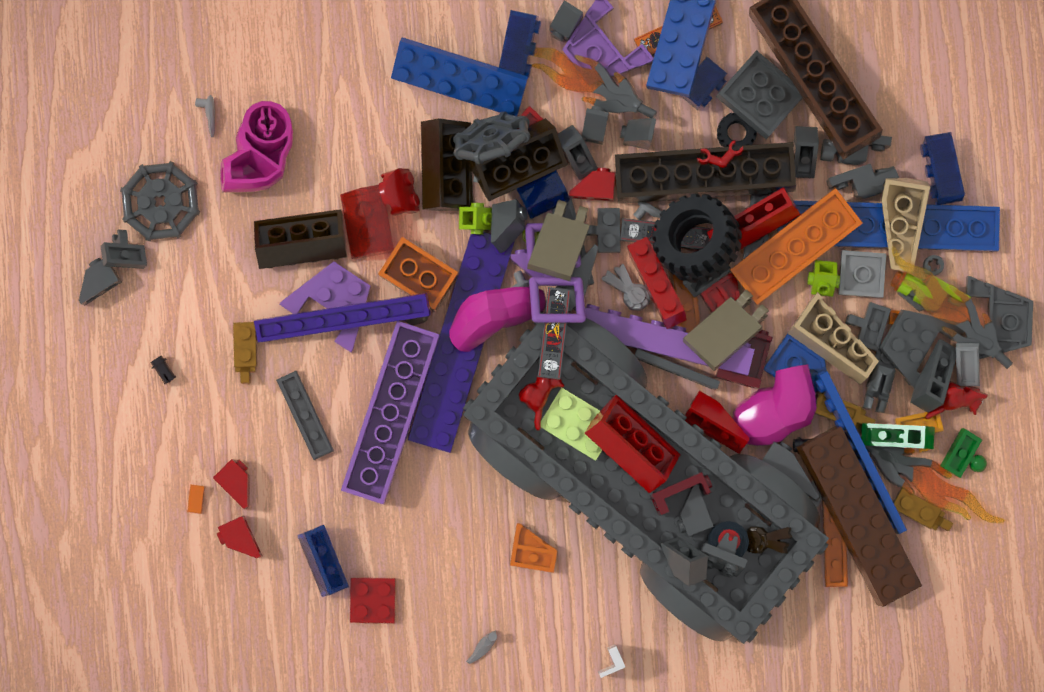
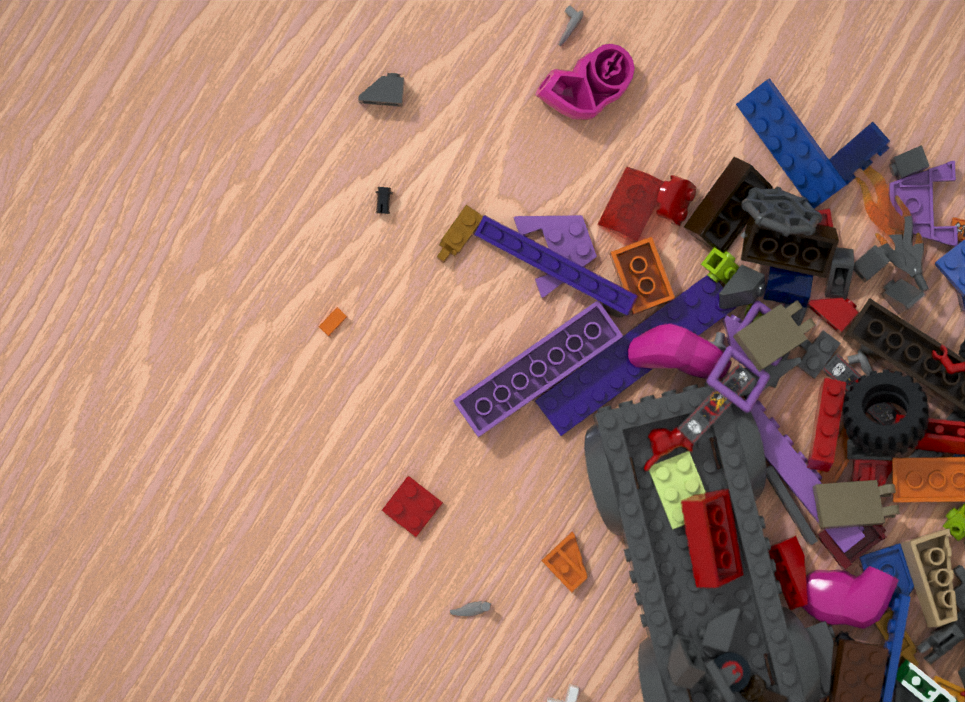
camera: 35 degrees right, 0 degrees up
(123, 254) = (419, 84): dark grey plate -> none
(159, 188) = (472, 75): dark grey plate -> none
(235, 481) = (374, 331): red slope -> none
(239, 537) = (344, 377): red slope -> none
(300, 239) = (568, 178): dark brown slope -> none
(305, 415) = (468, 320): dark grey tile -> none
(323, 561) = (396, 445): clear blue brick -> none
(635, 295) = (800, 422): light grey piece -> none
(658, 497) = (700, 596): dark red panel -> none

